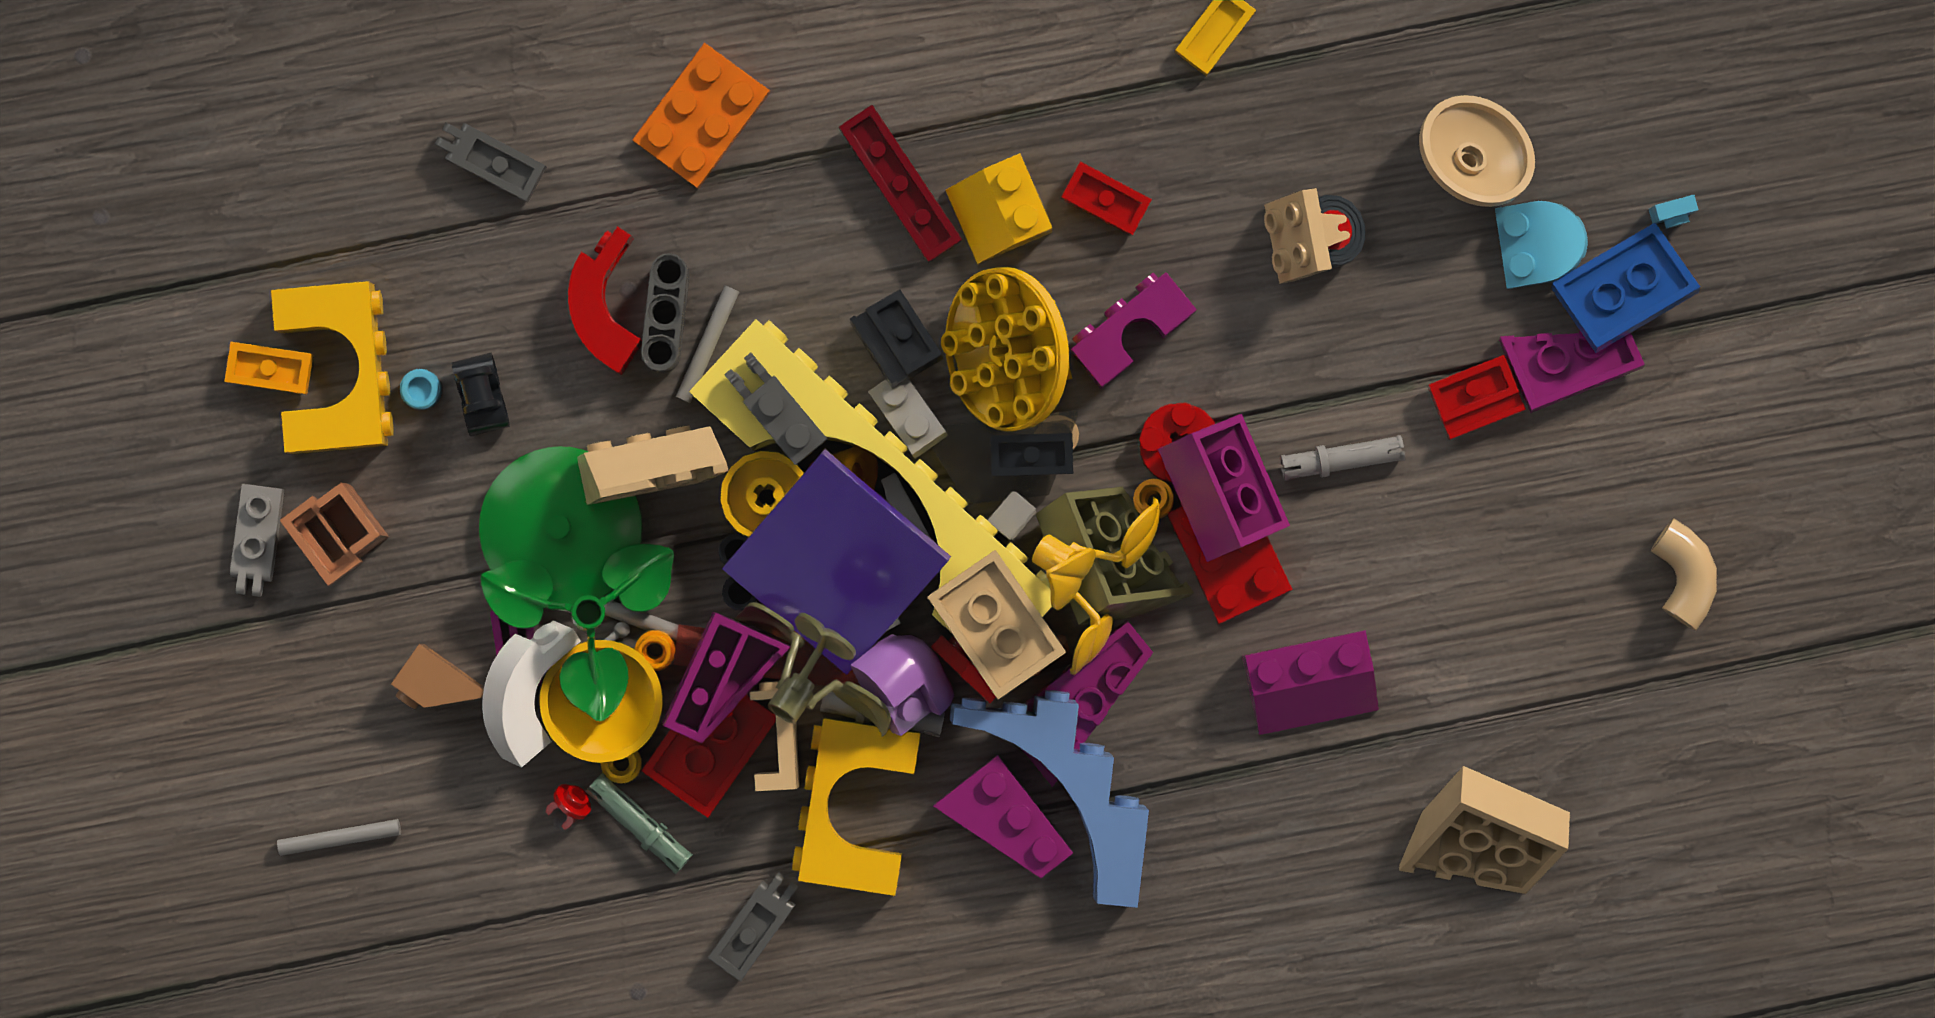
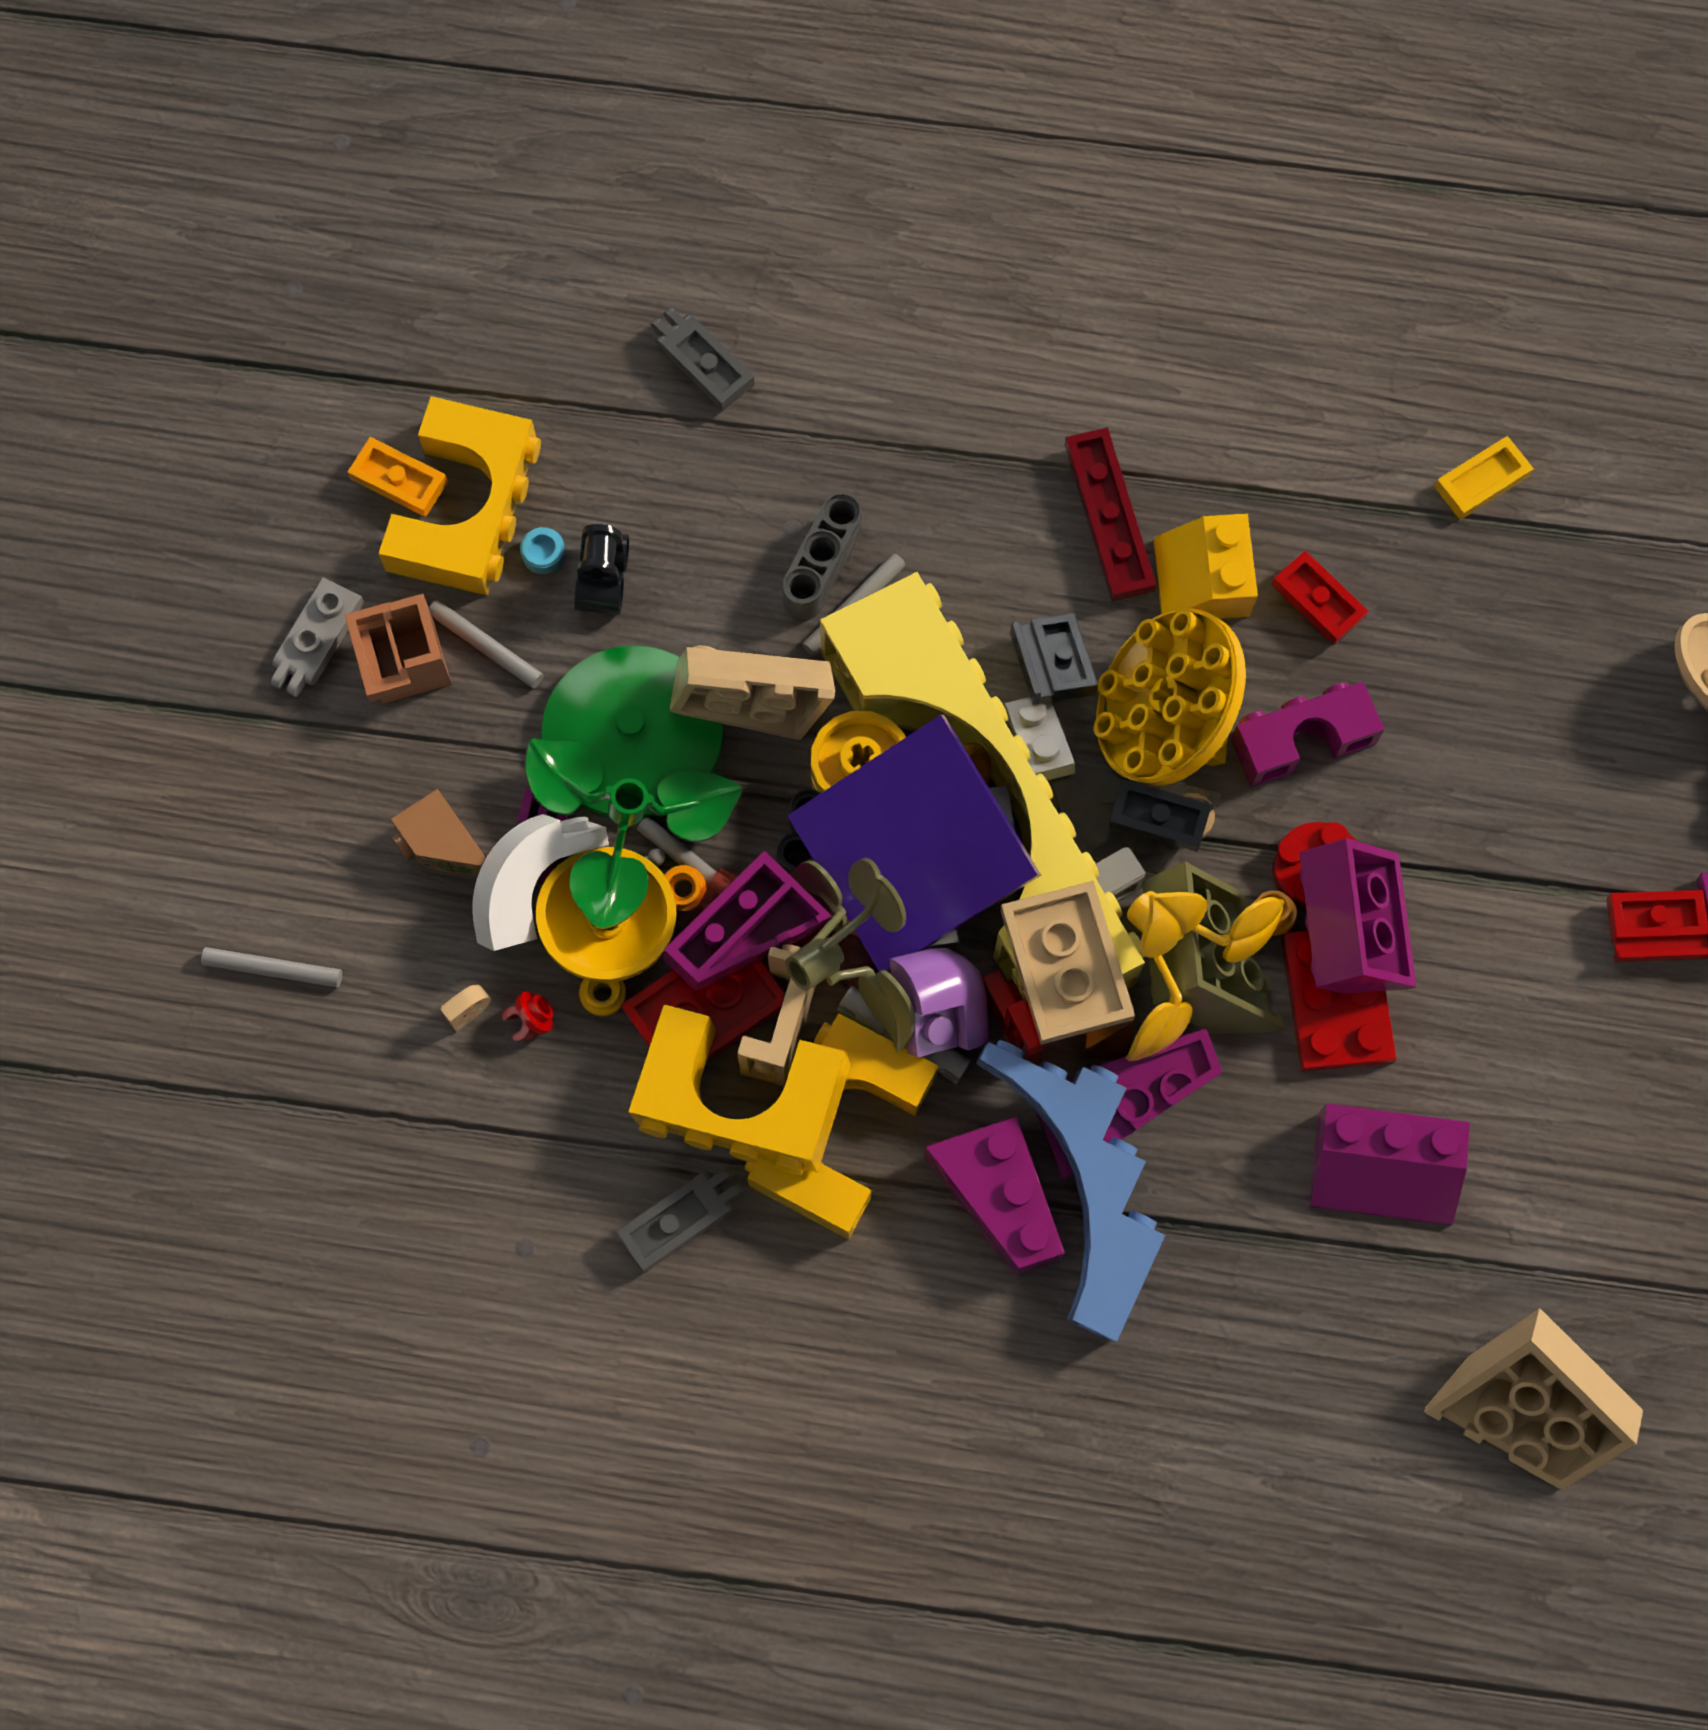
camera: 15 degrees right, 15 degrees down
(404, 492) = (486, 644): none -> light grey bar
(513, 816) = (465, 1006): none -> tan tile
(588, 305) = (749, 555): red arch -> none
(641, 825) = (604, 1077): sand green pin -> none
(701, 115) = (928, 388): orange plate -> none
(714, 839) = (788, 1132): none -> yellow arch
(779, 413) = (907, 667): dark grey hinge -> none
(1312, 233) = (1529, 696): tan plate -> none
(1328, 460) = (1473, 937): light grey pin -> none

